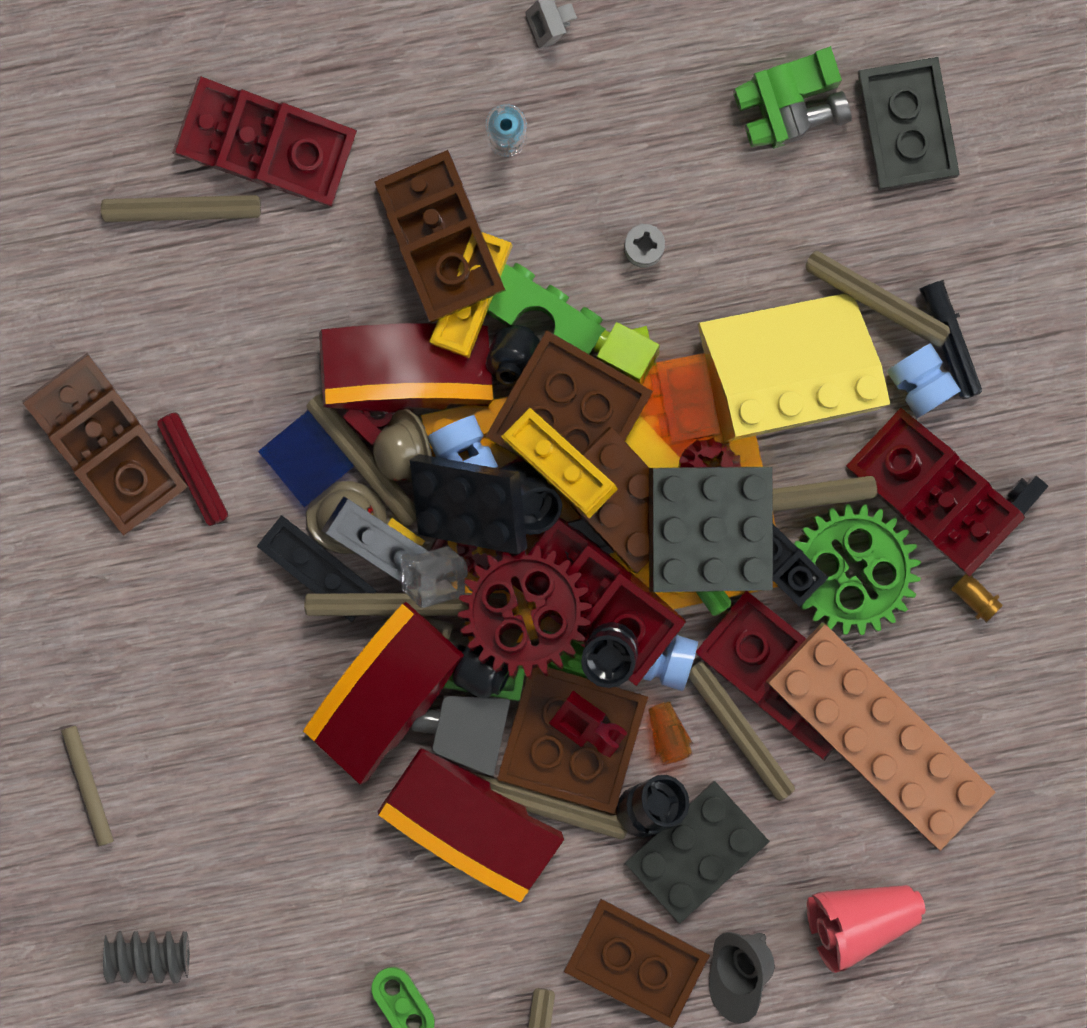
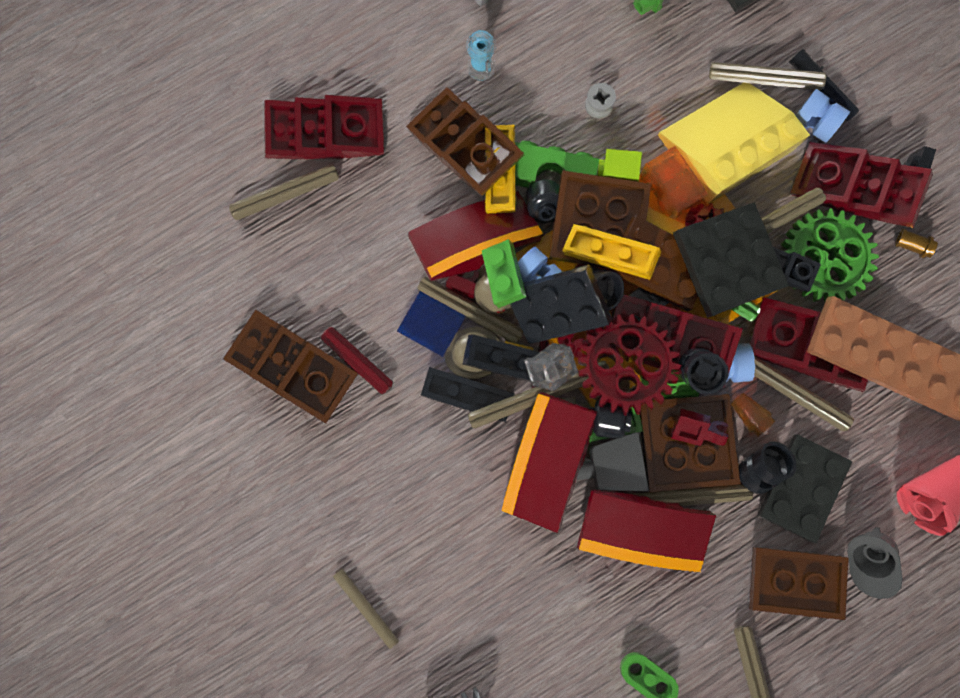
camera: 15 degrees left, 5 degrees down
(416, 437) = (503, 273): none -> bright green plate

